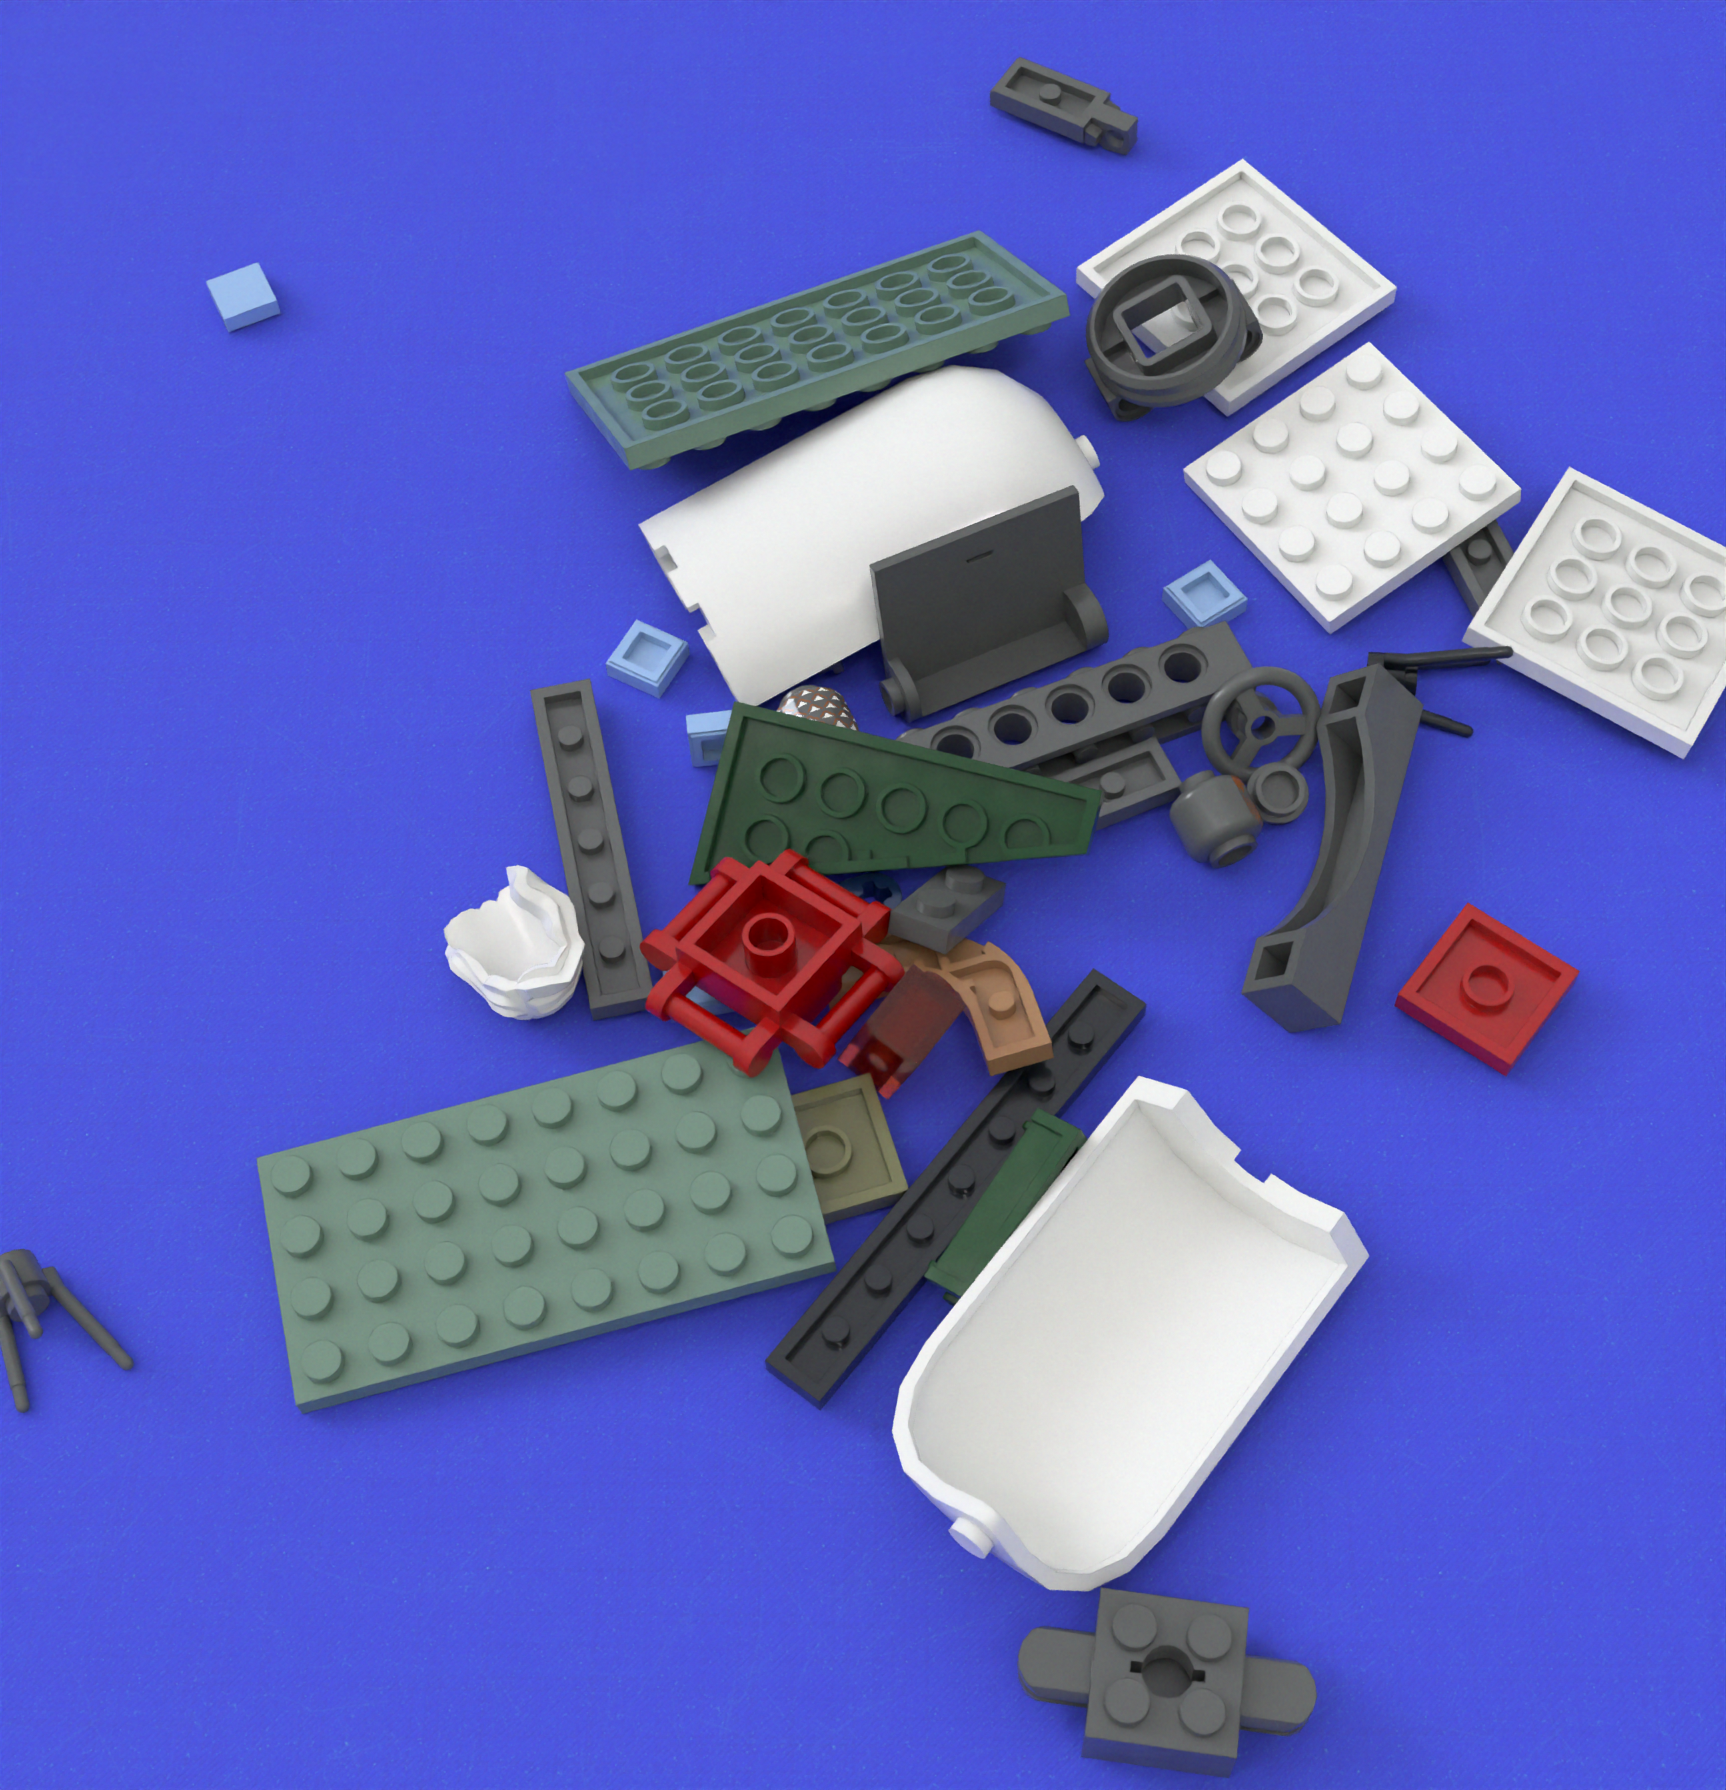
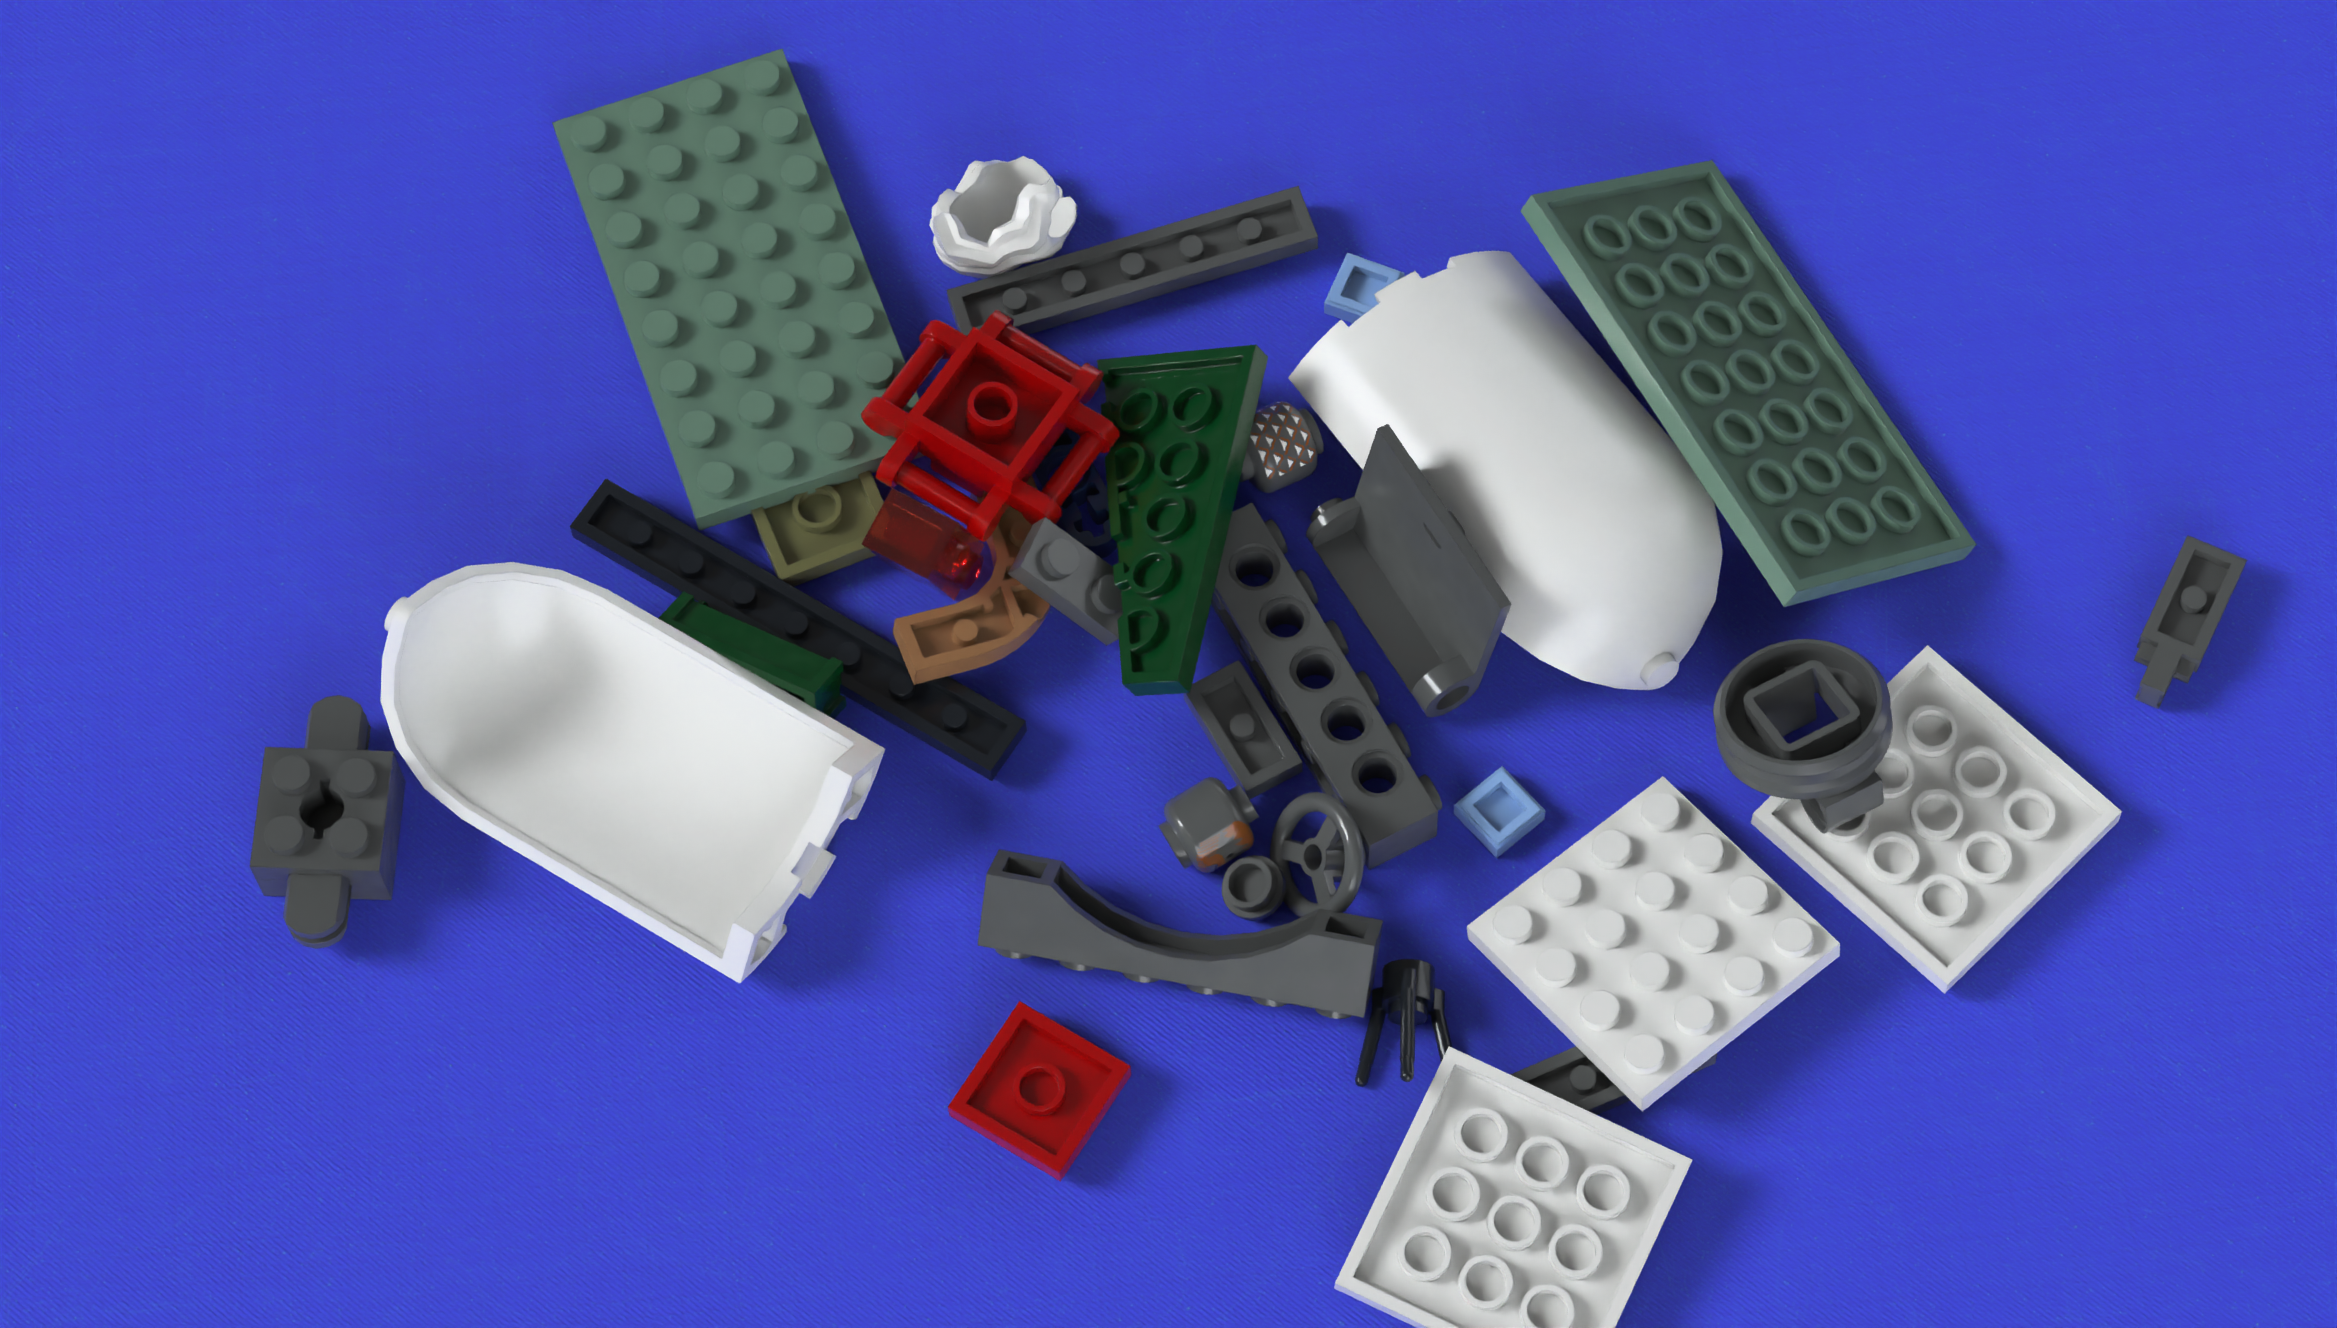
camera: 85 degrees right, 5 degrees up
(707, 736) = (1259, 334): light blue tile -> none

